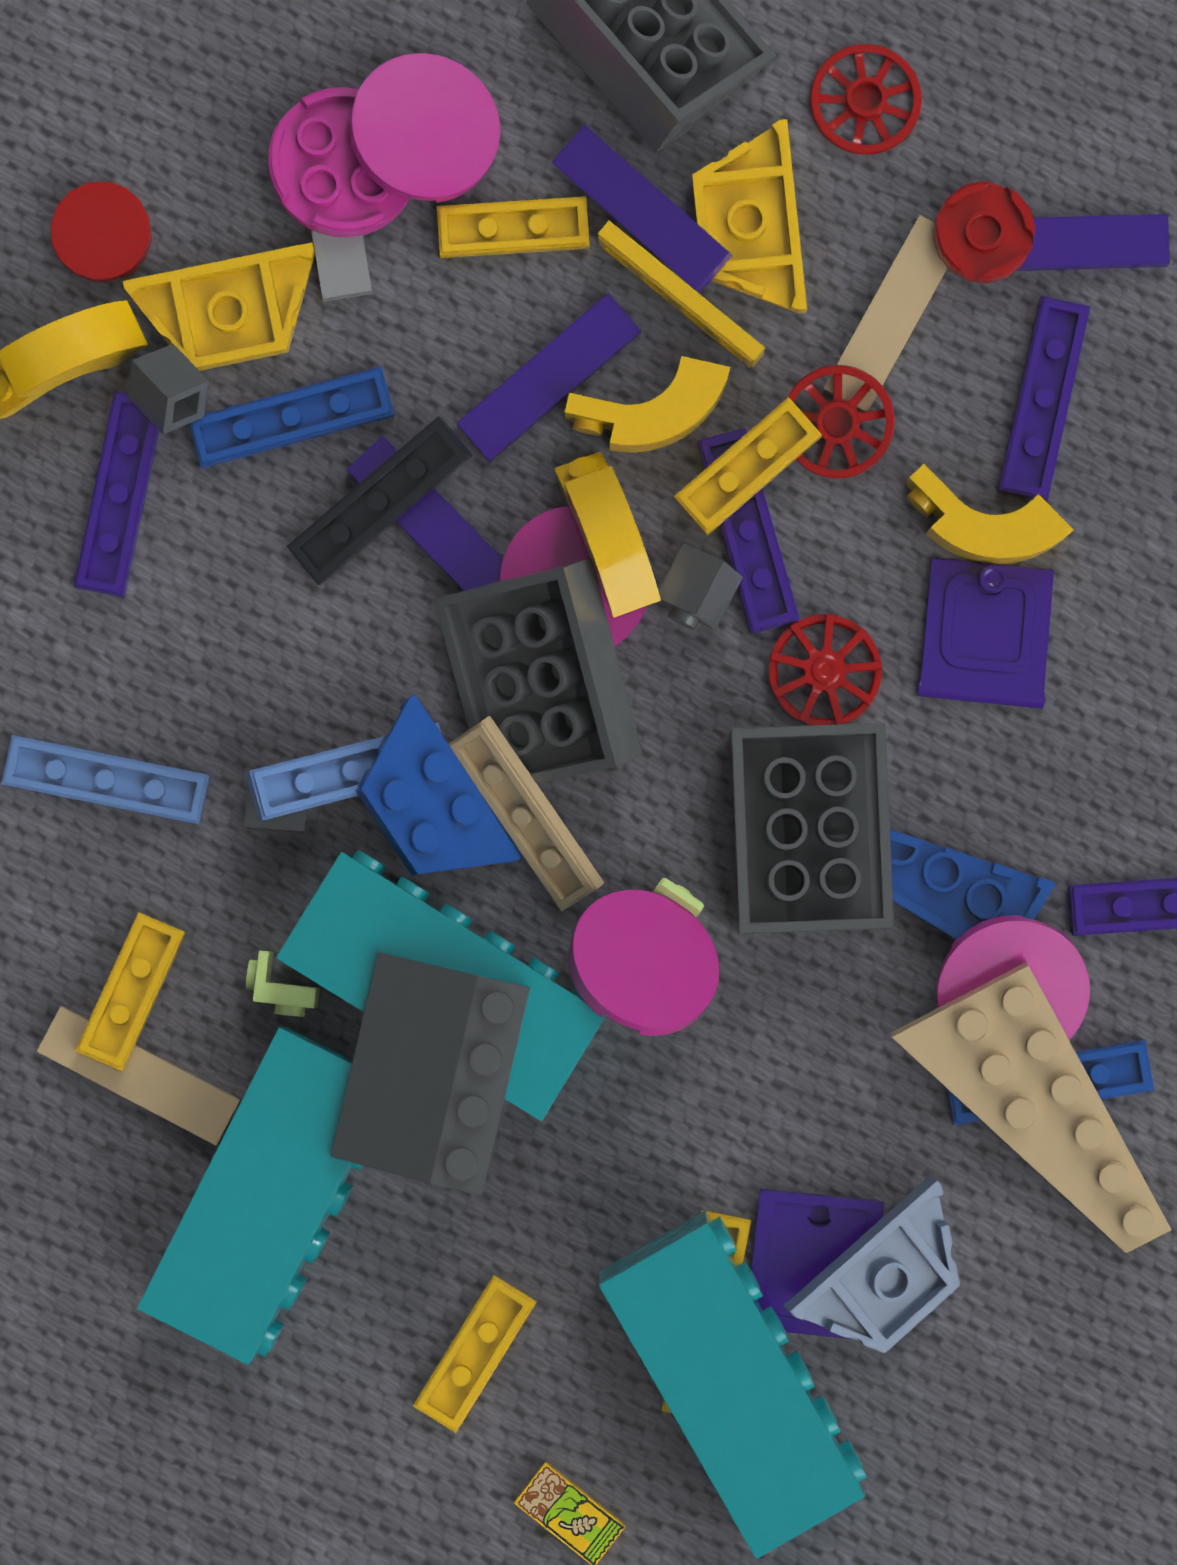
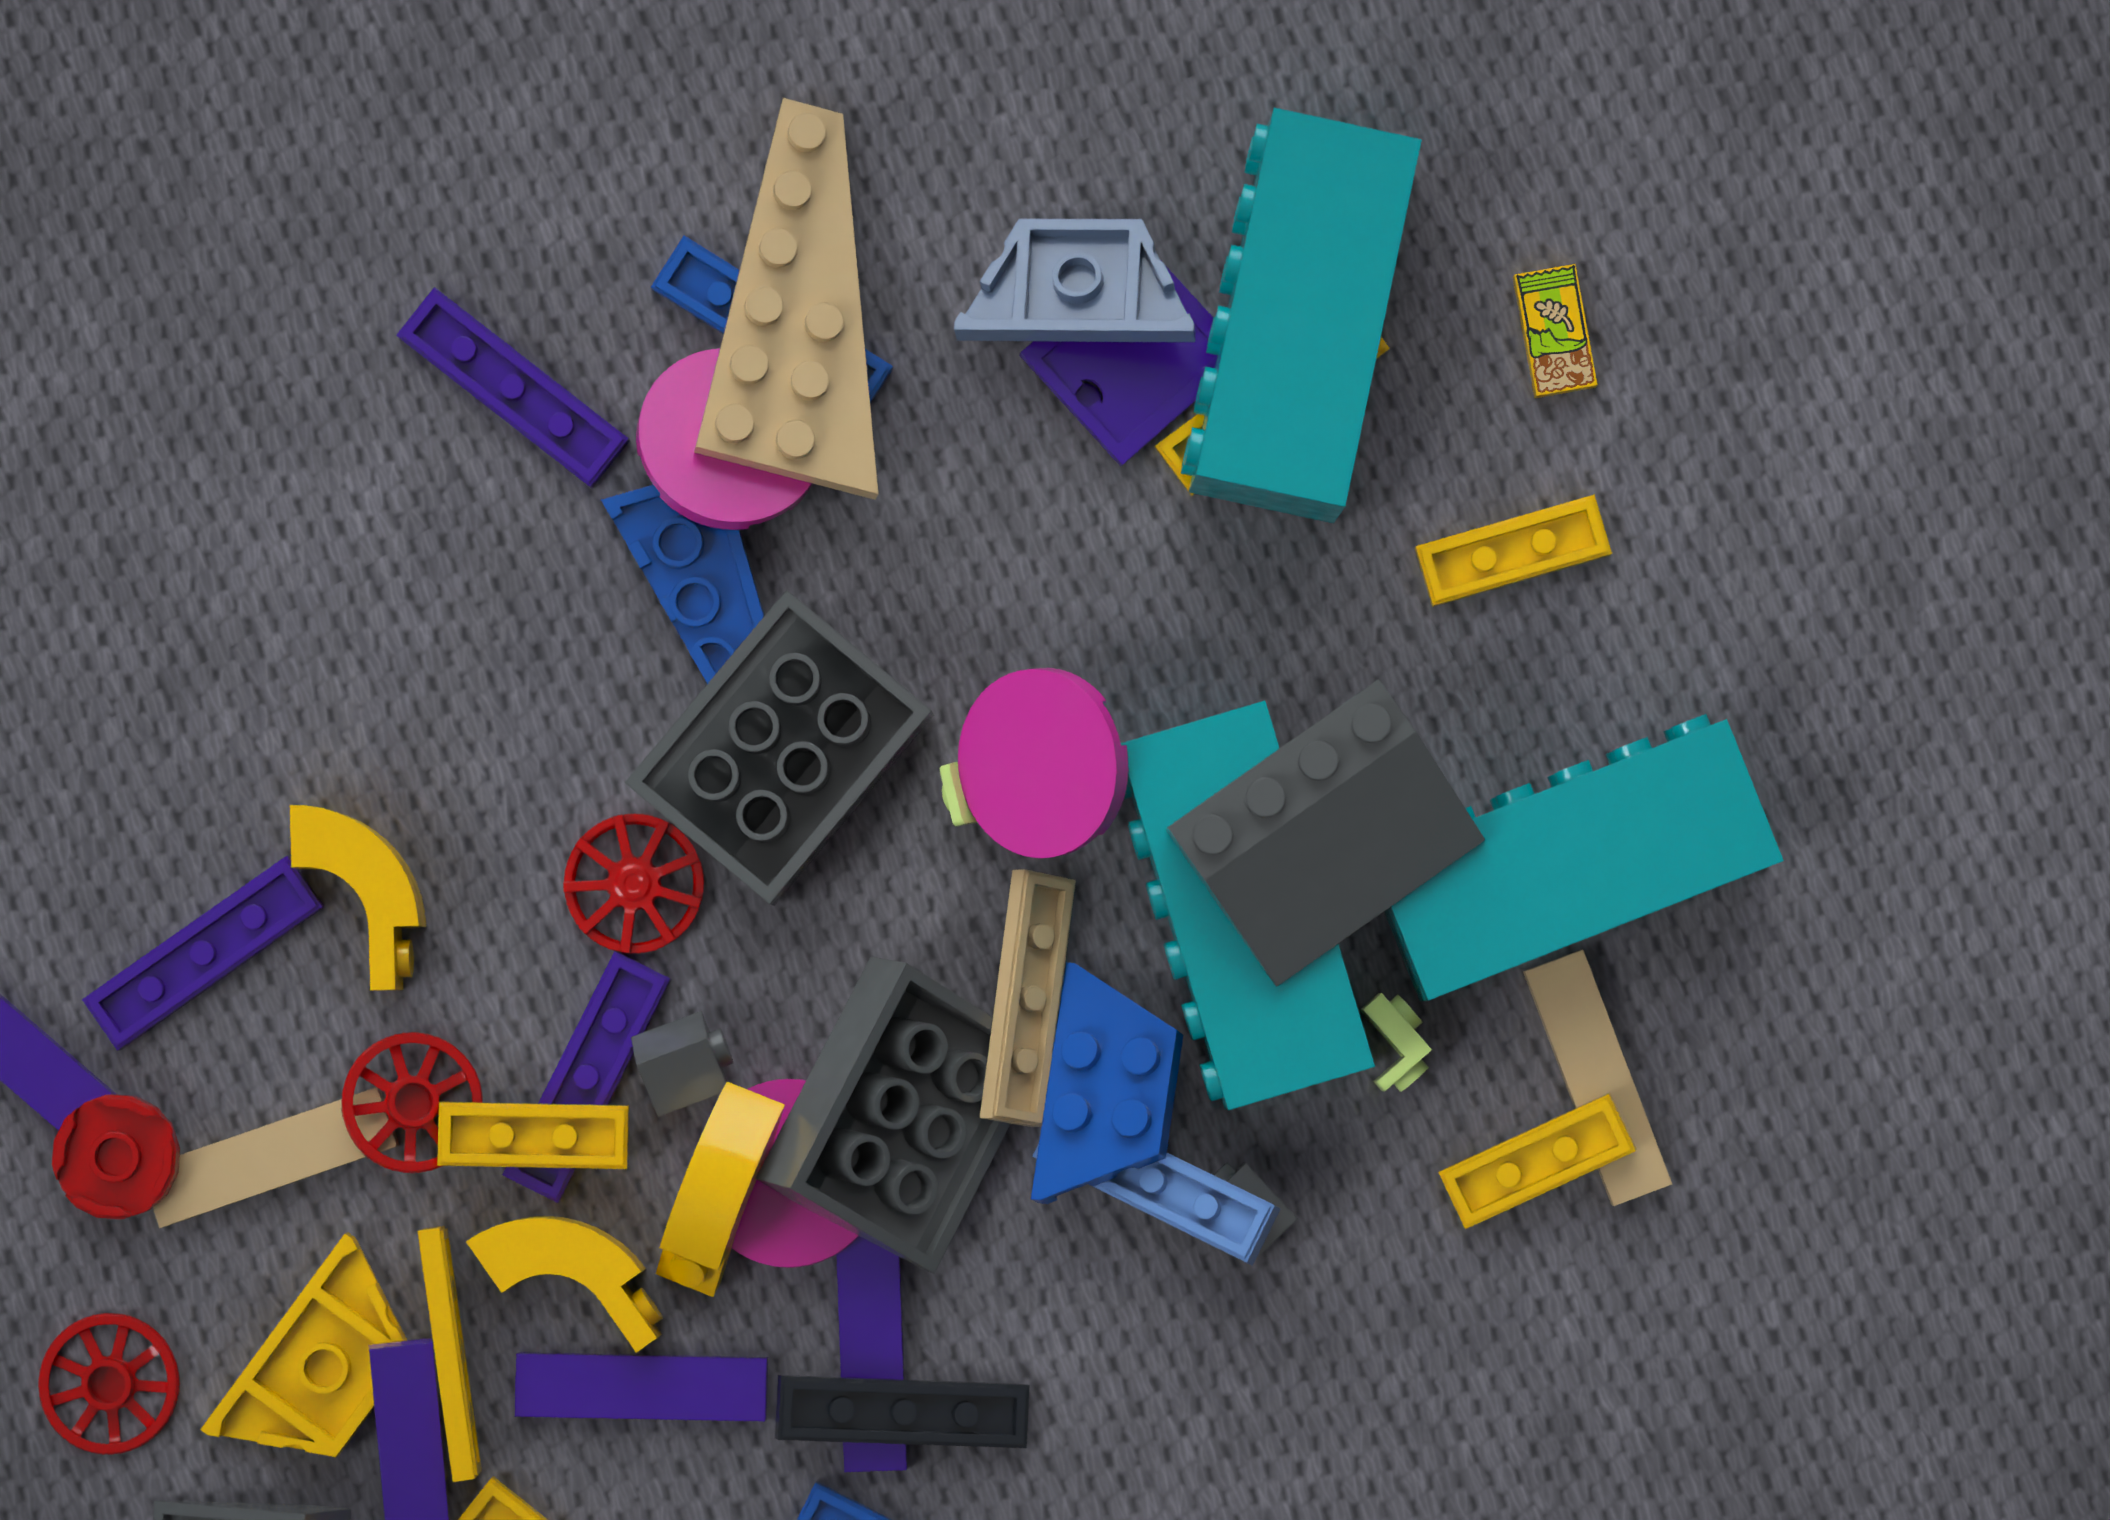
camera: 135 degrees left, 0 degrees up
(106, 779) = (1387, 1380): medium blue tile -> none
(986, 643) = (463, 775): dark purple container -> none

